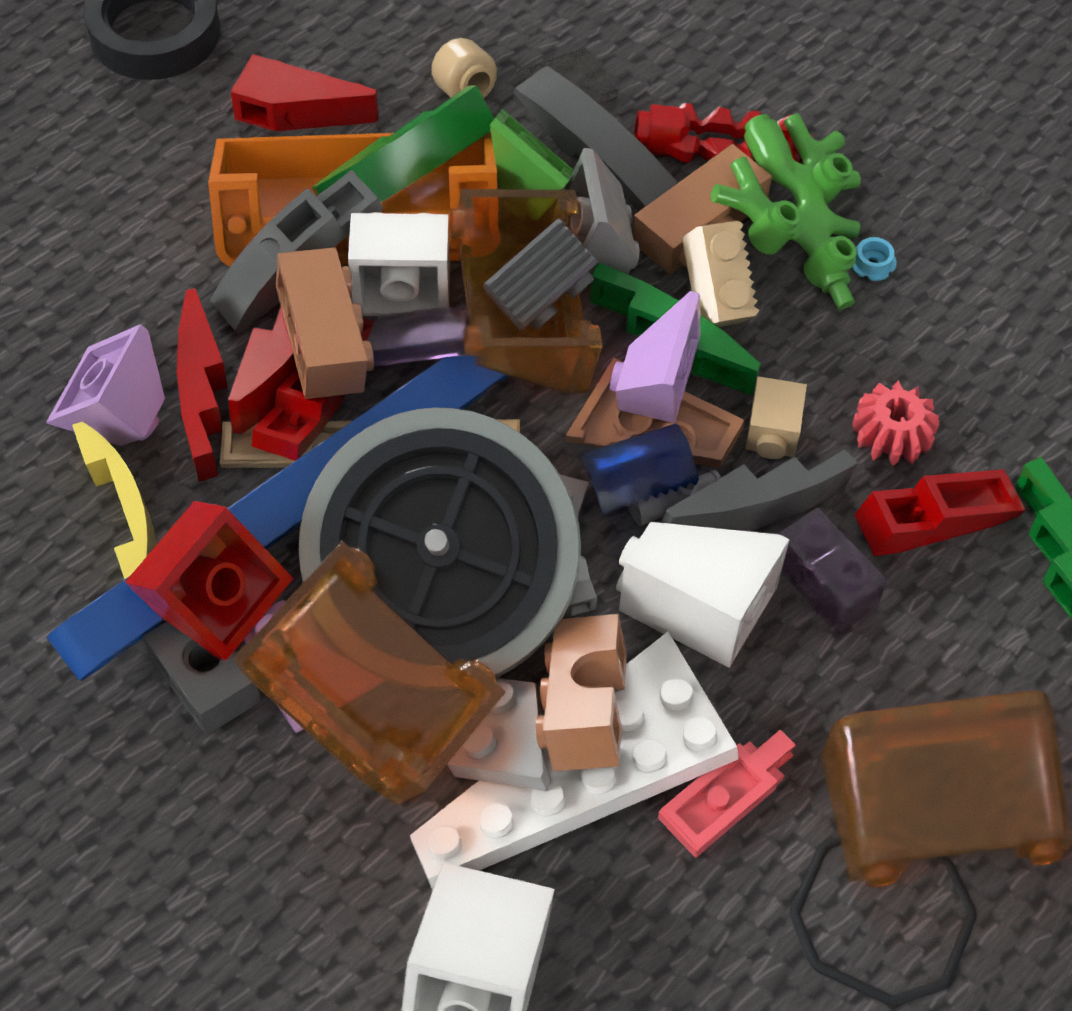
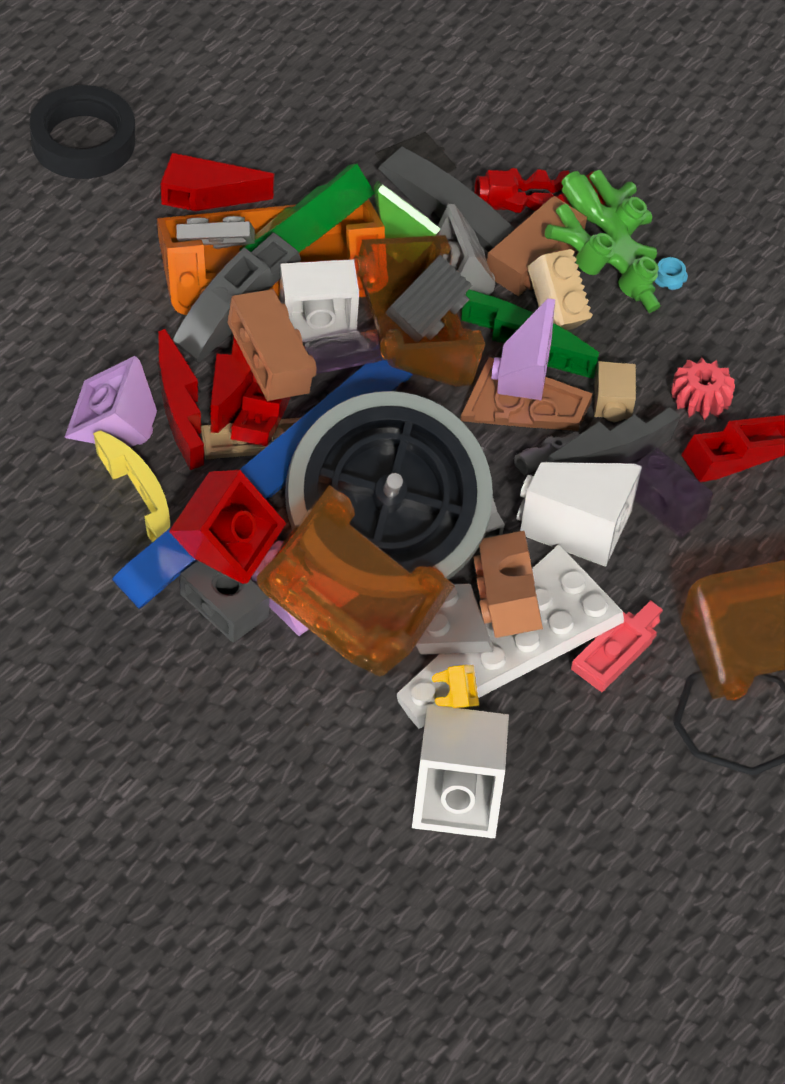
camera: 10 degrees left, 5 degrees down
(295, 167) = (230, 232): none -> light grey wing
(462, 65) = (334, 152): tan head -> none
(492, 844) = (462, 687): none -> yellow tile
(640, 468) = (522, 431): clear blue brick -> none

